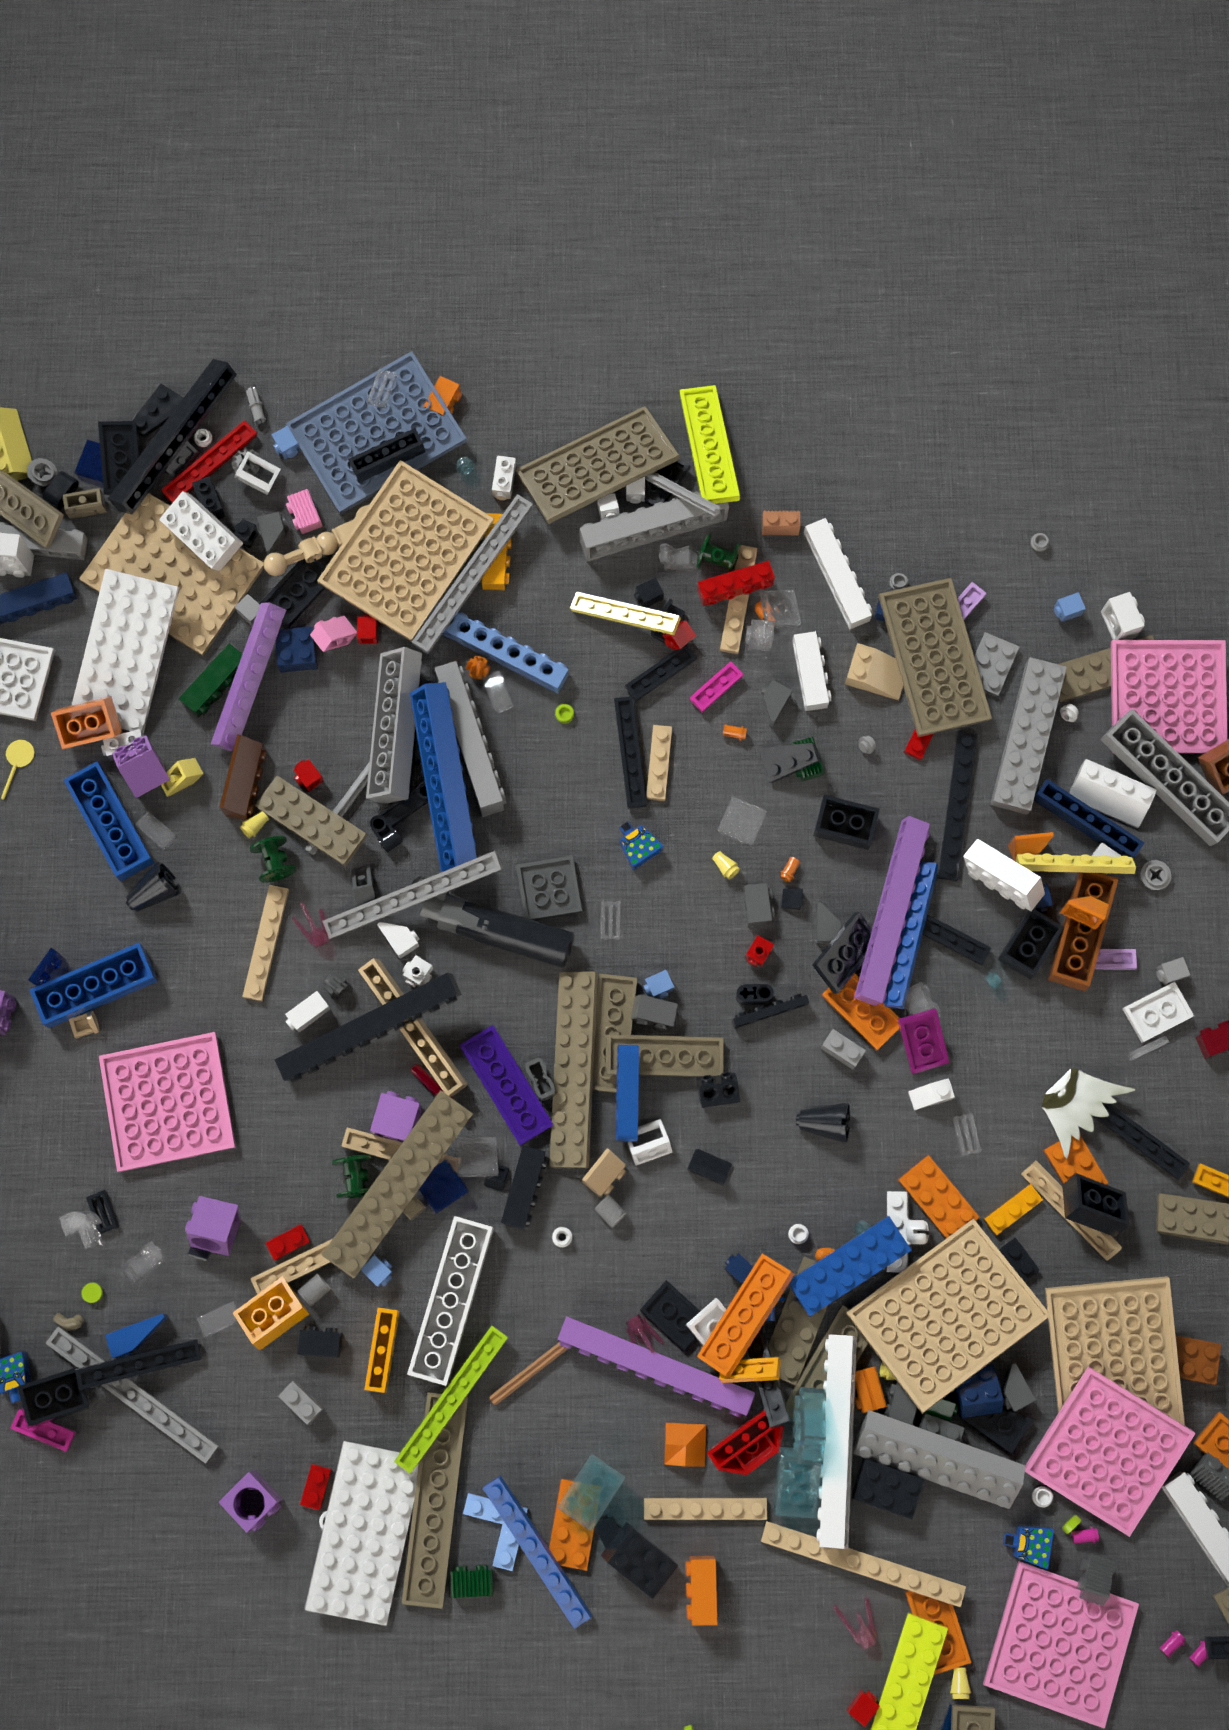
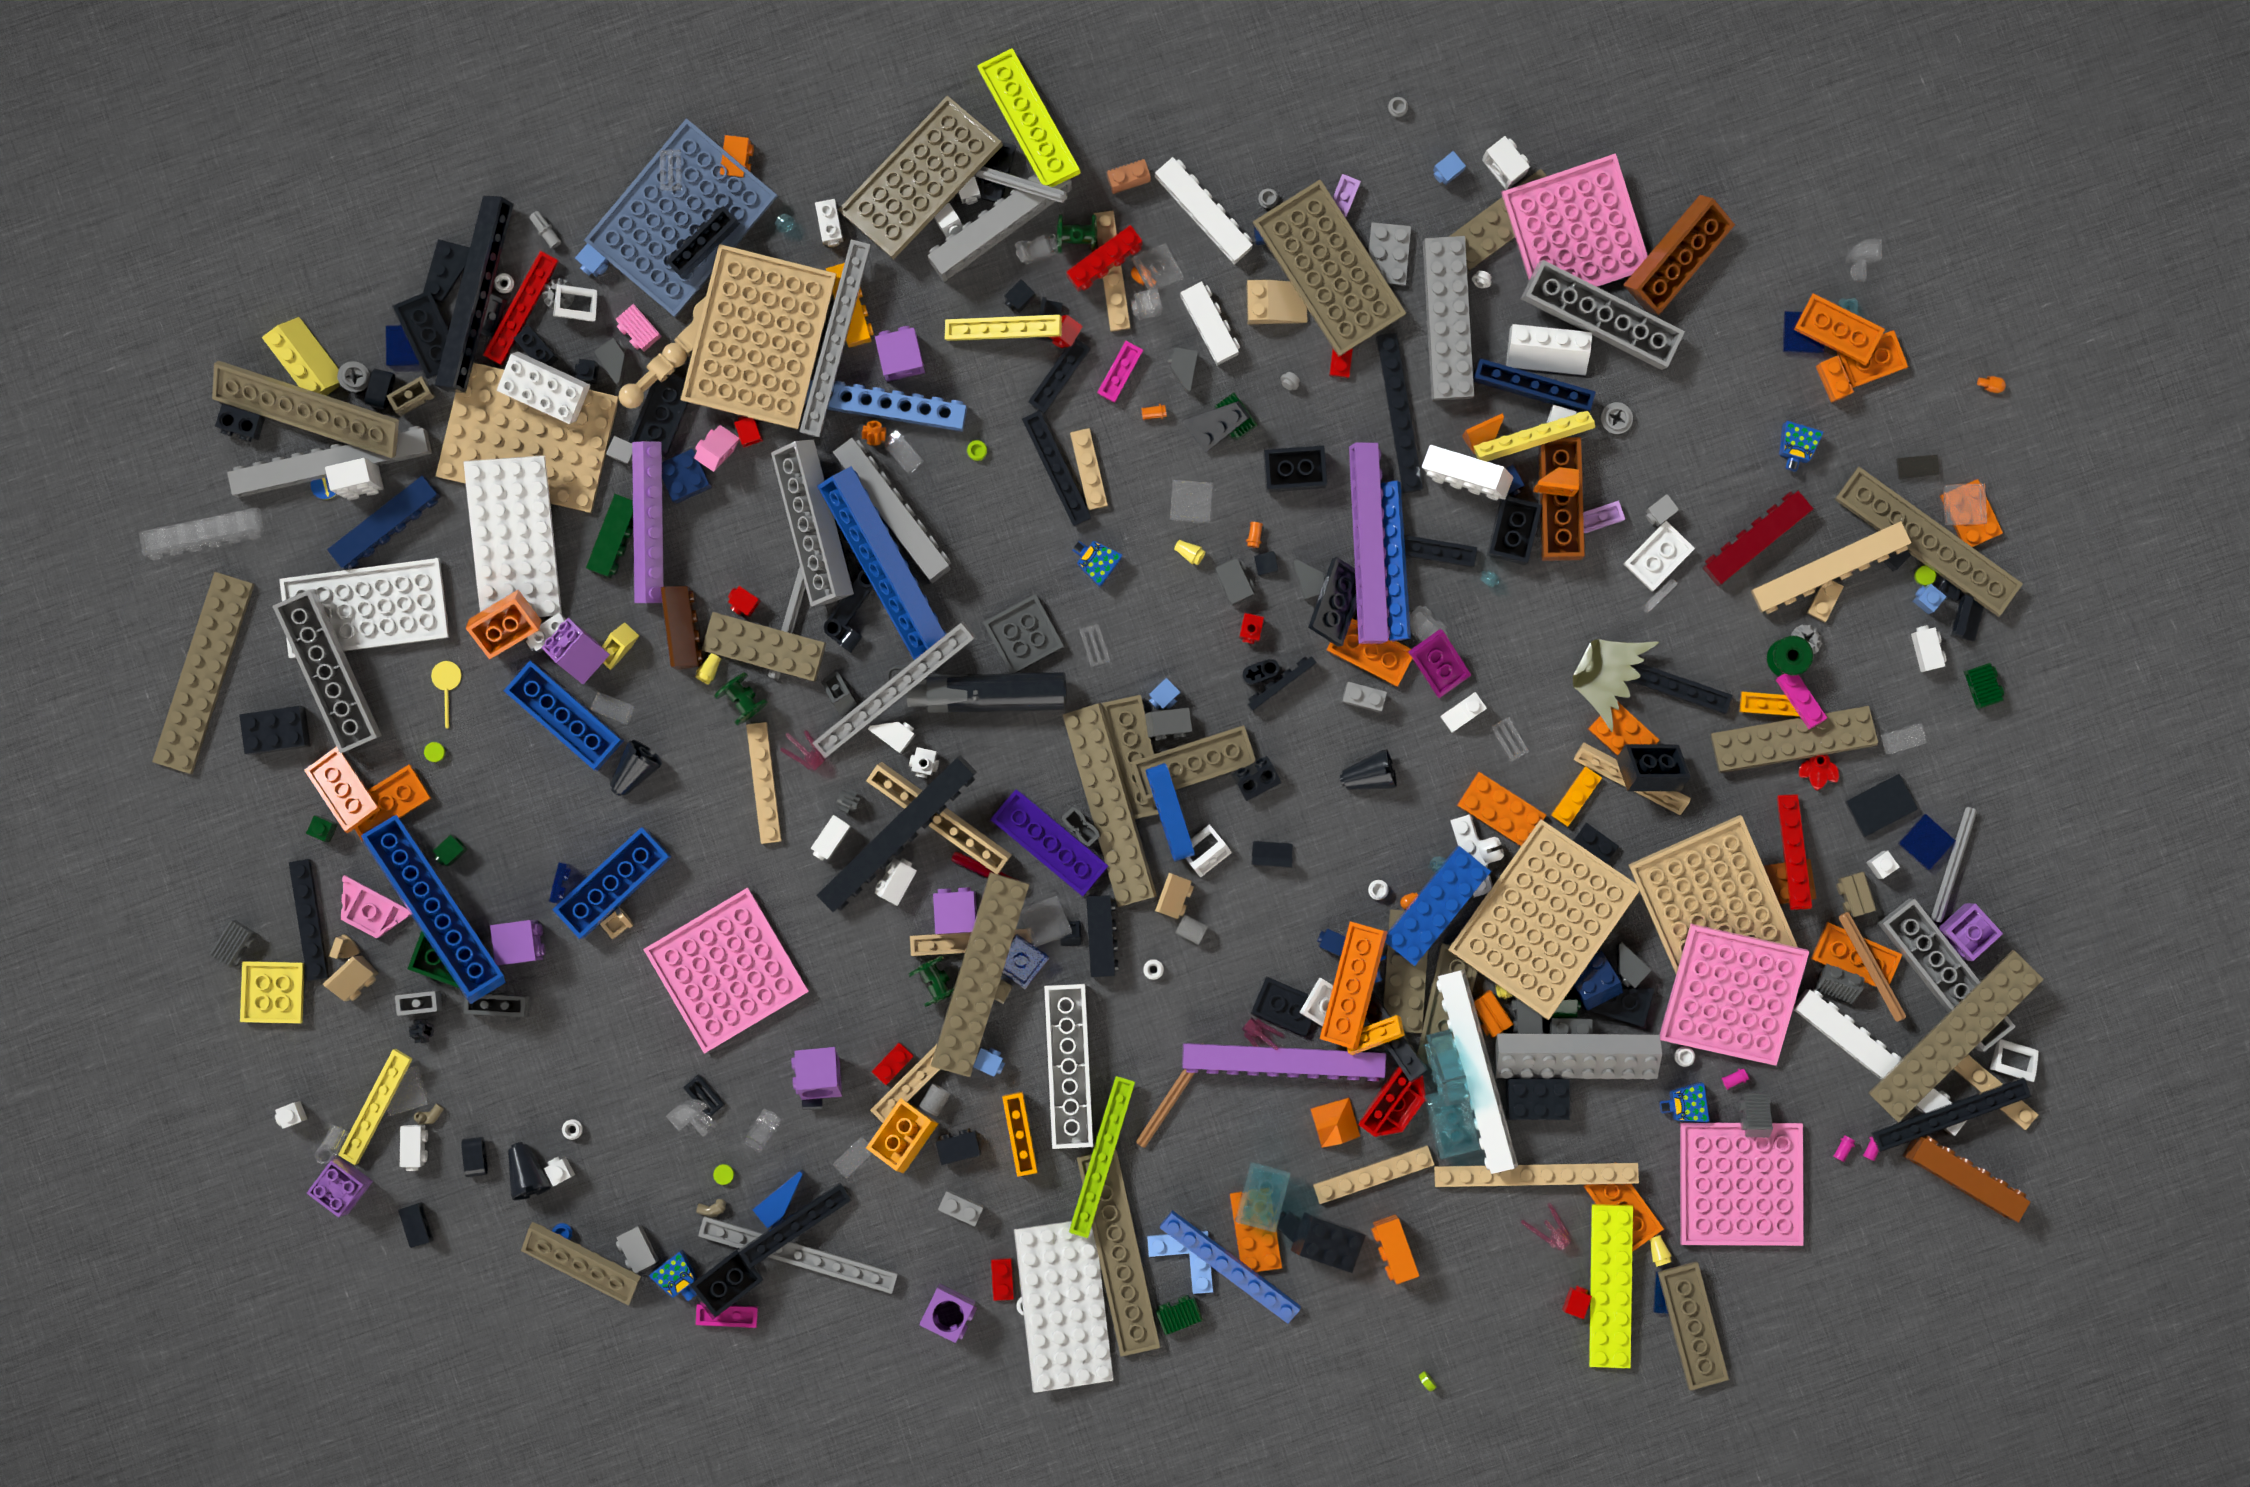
camera: 15 degrees left, 10 degrees up
(352, 1071) = (895, 881): none -> white brick
(525, 606) = (899, 353): none -> medium lavender brick
(1071, 1524) = (1718, 1073): lime tile -> none
(1207, 1332) = (1794, 852): none -> red plate

